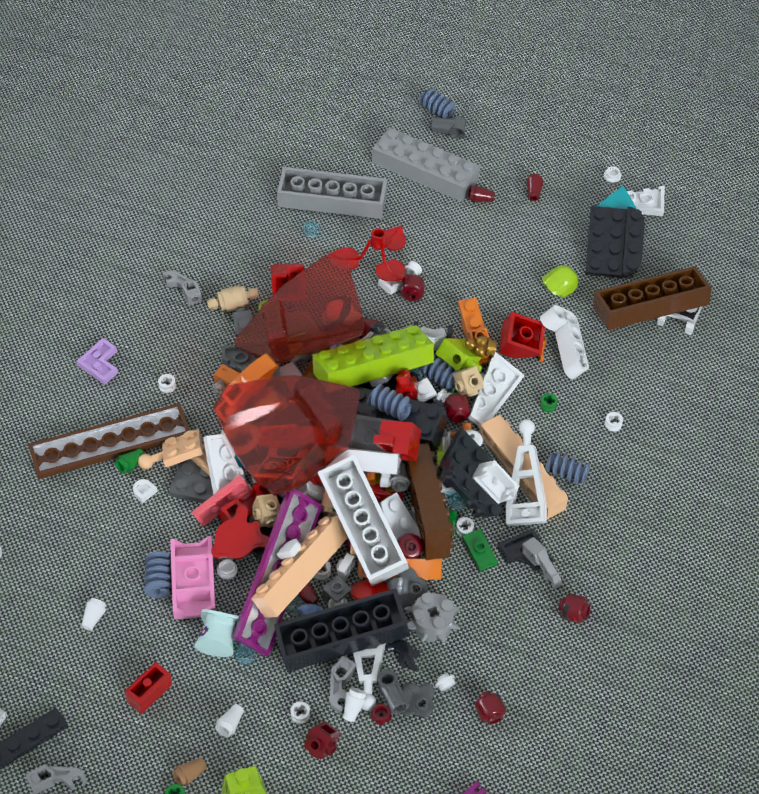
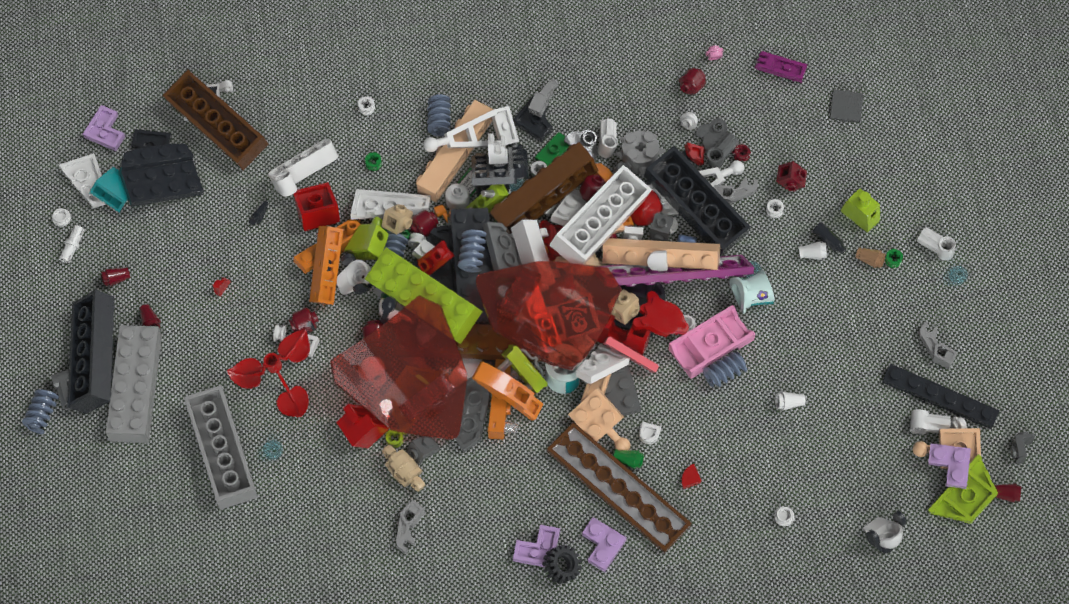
camera: 115 degrees left, 10 degrees up
(62, 360) = (552, 565): none -> black tyre
(71, 414) = (607, 541): none -> lavender plate
(80, 500) = (690, 477): none -> red tile
(148, 687) = (828, 317): red brick -> none
(170, 379) = (528, 470): white bush -> none
(235, 744) = (829, 238): none -> black cylinder
(353, 704) = (747, 170): white cone -> none
(399, 438) = (512, 219): red plate -> none
(406, 670) = (695, 153): none -> red tile
(453, 313) = (326, 265): none -> orange piece
(466, 141) = (91, 352): none -> black brick
(468, 599) = (607, 138): none -> white piece
(470, 573) = (575, 137): none -> plate
(482, 249) = (220, 286): none -> red tile
(482, 346) = (353, 222): pearl gold piece -> none
(515, 749) = (714, 53): none -> bright pink plate
(539, 300) = (259, 214): none -> black bar
(561, 280) = (228, 205): lime hair -> none
(574, 608) = (570, 61): dark red head -> none
(581, 171) = (71, 244): none -> white pin
(657, 256) = (148, 138): none -> black tile
(689, 225) = (100, 129): none -> lavender plate

